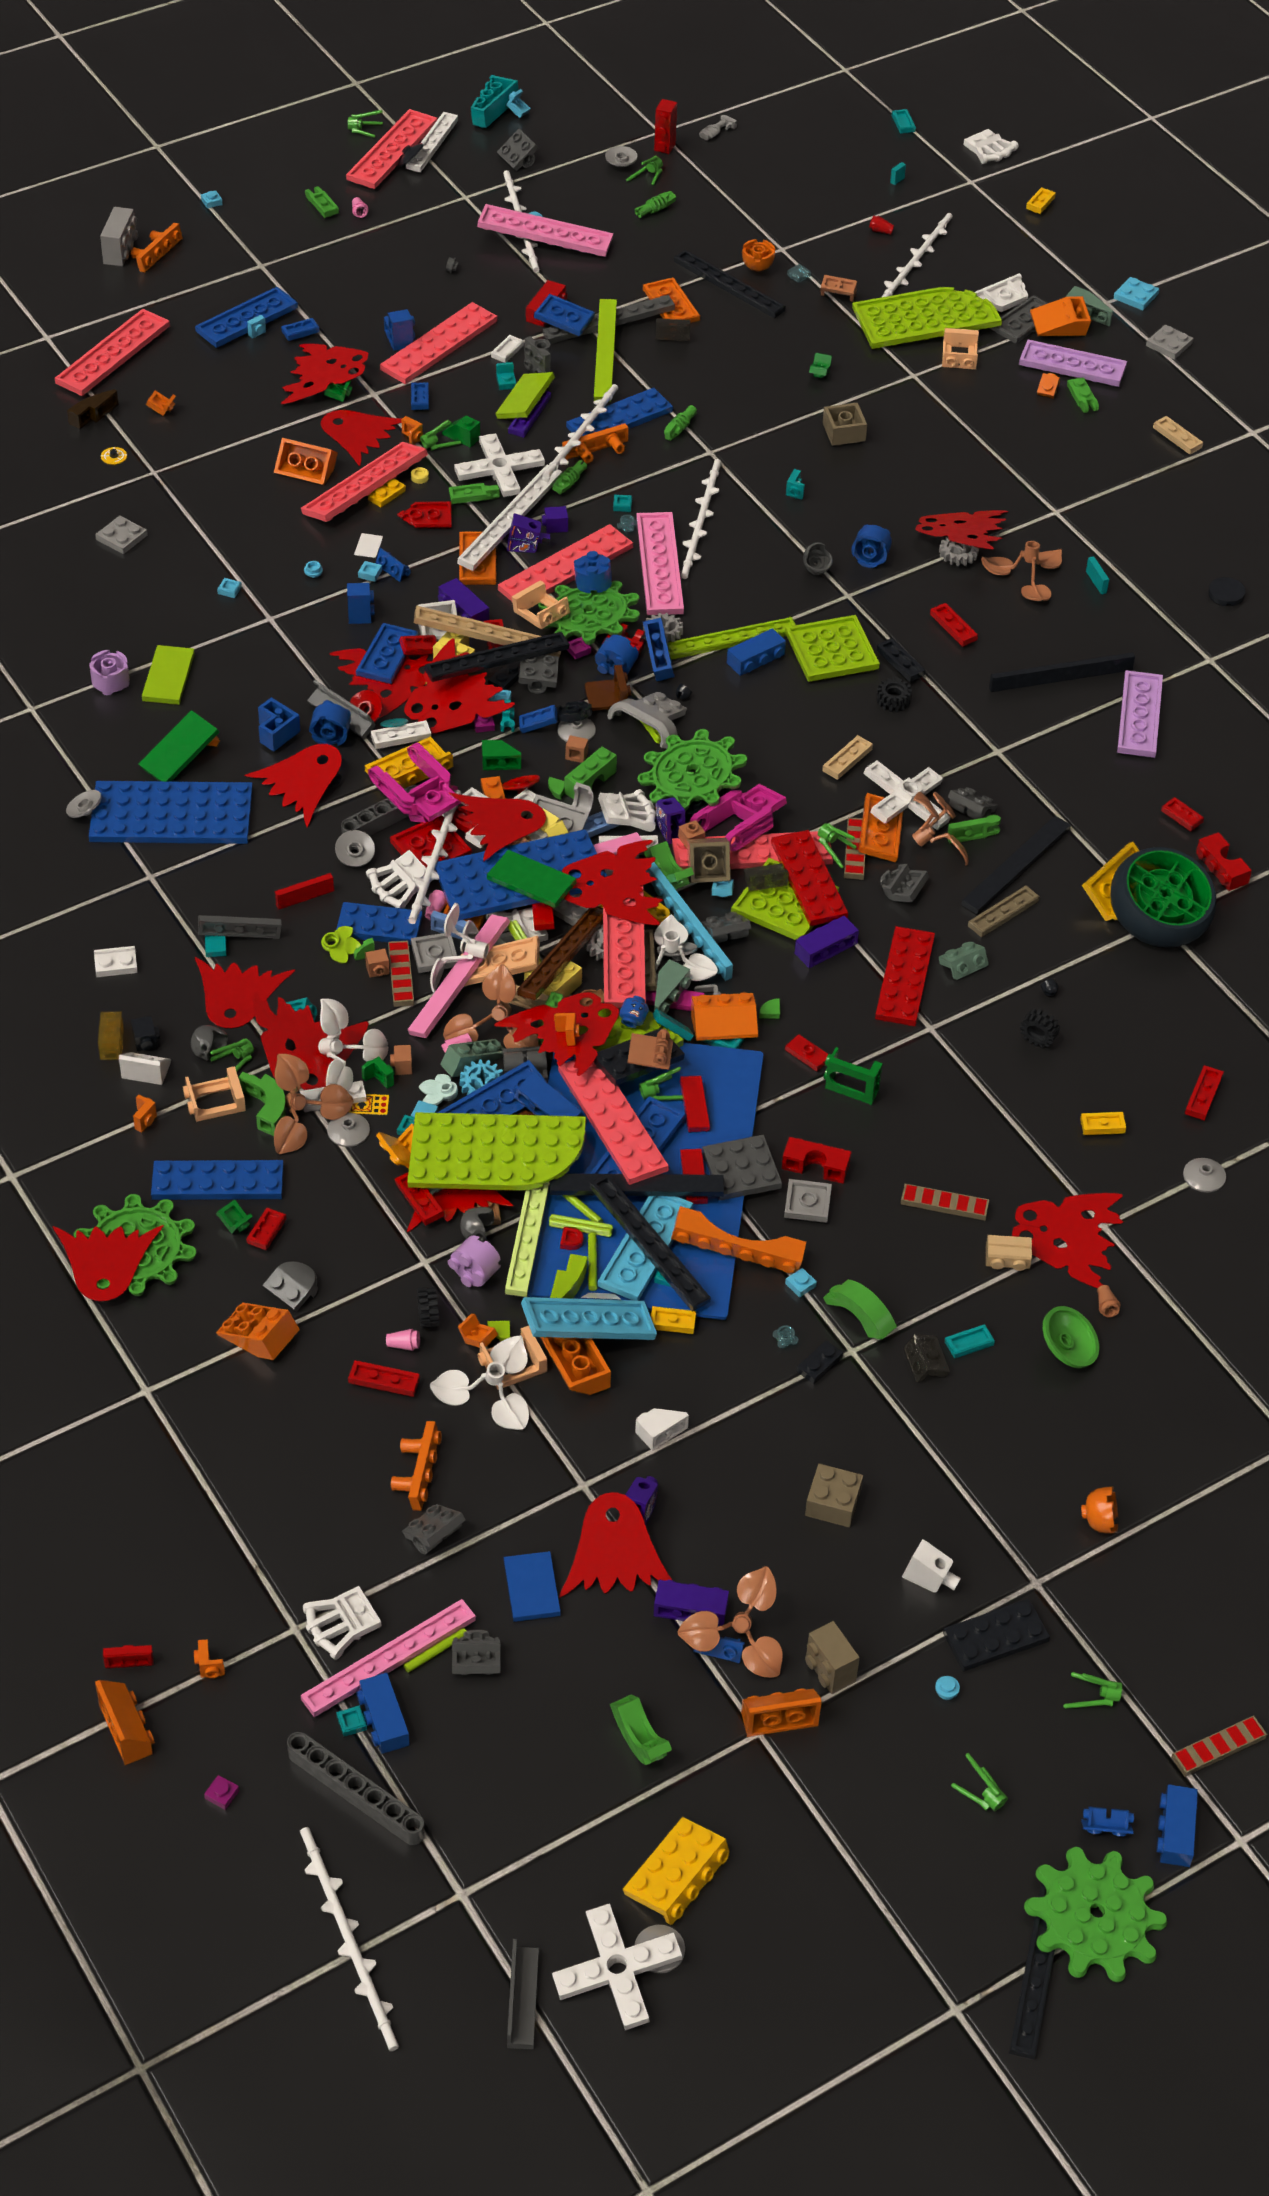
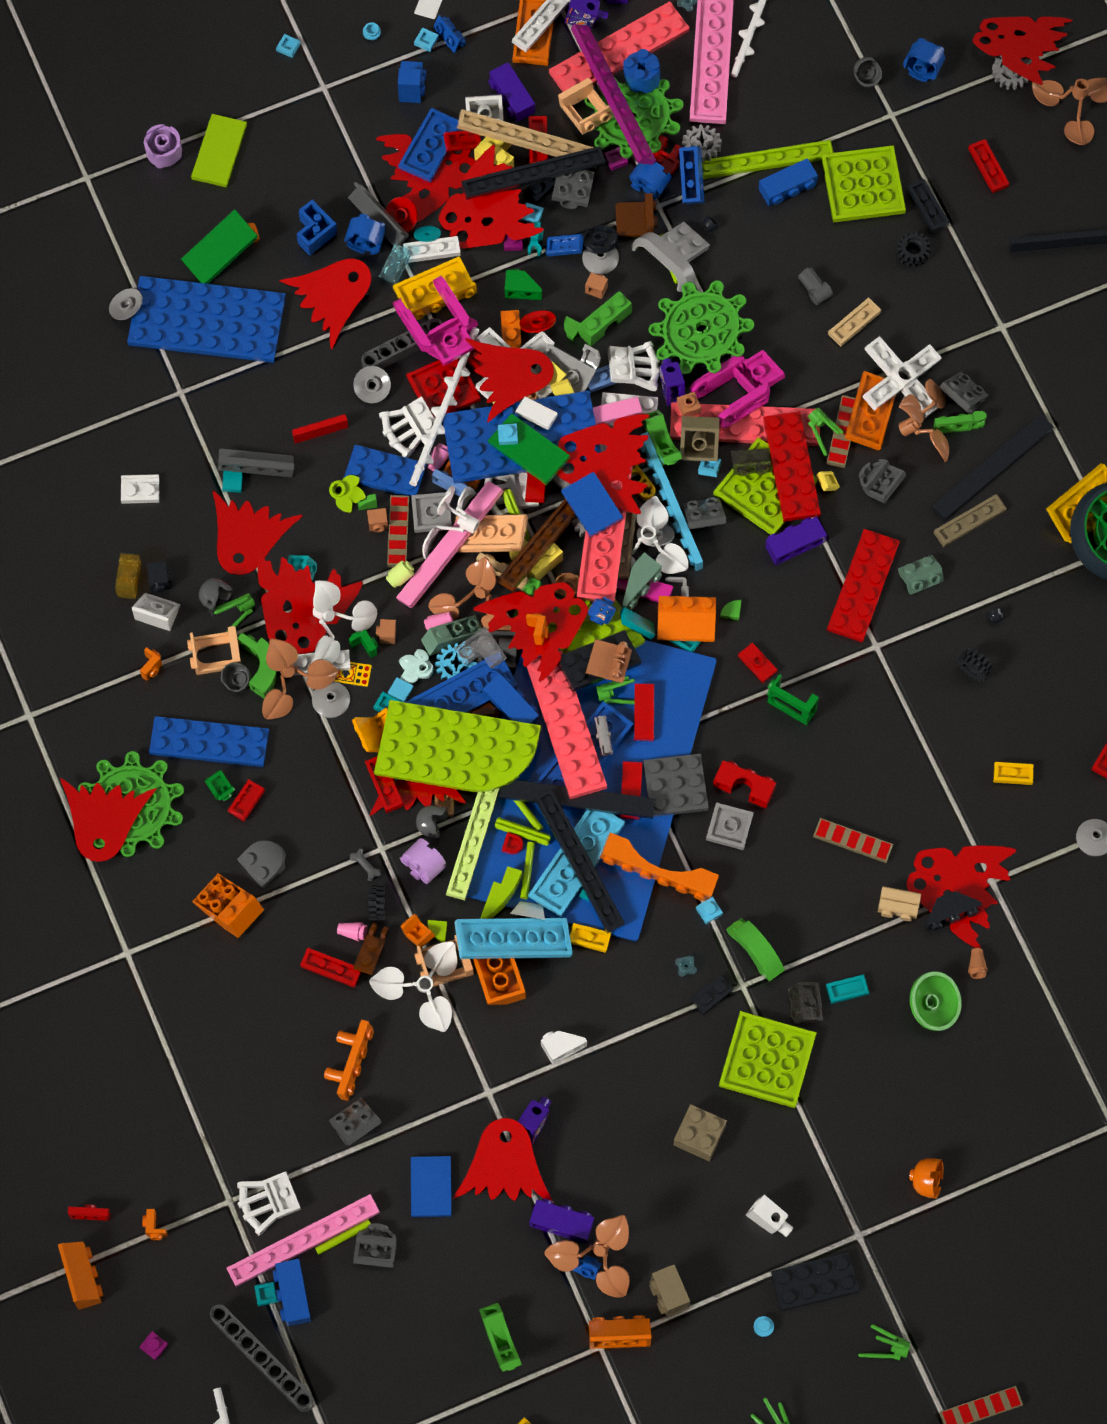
camera: 10 degrees right, 20 degrees up
(240, 1114) = (235, 677): none -> dark grey hair
(365, 748) = (395, 264): none -> clear light blue plate
(409, 1006) = (400, 573): none -> yellowish green brick
(414, 1281) = (359, 857): none -> dark grey piece
(427, 1355) = (371, 950): none -> reddish brown hinge
(507, 865) = (507, 434): none -> medium azure plate
(507, 1052) = (481, 644): none -> clear plate
(534, 849) = (536, 413): none -> white tile
(569, 590) = (613, 94): none -> magenta plate
(607, 919) = (592, 504): none -> blue tile
(655, 1124) = (603, 735): none -> light grey pin
(803, 734) = (817, 290): none -> dark grey piece
(849, 888) = (828, 481): none -> light yellow tile
(895, 1417) = (767, 1059): none -> lime plate
(1068, 1250) = (951, 909): none -> black slope

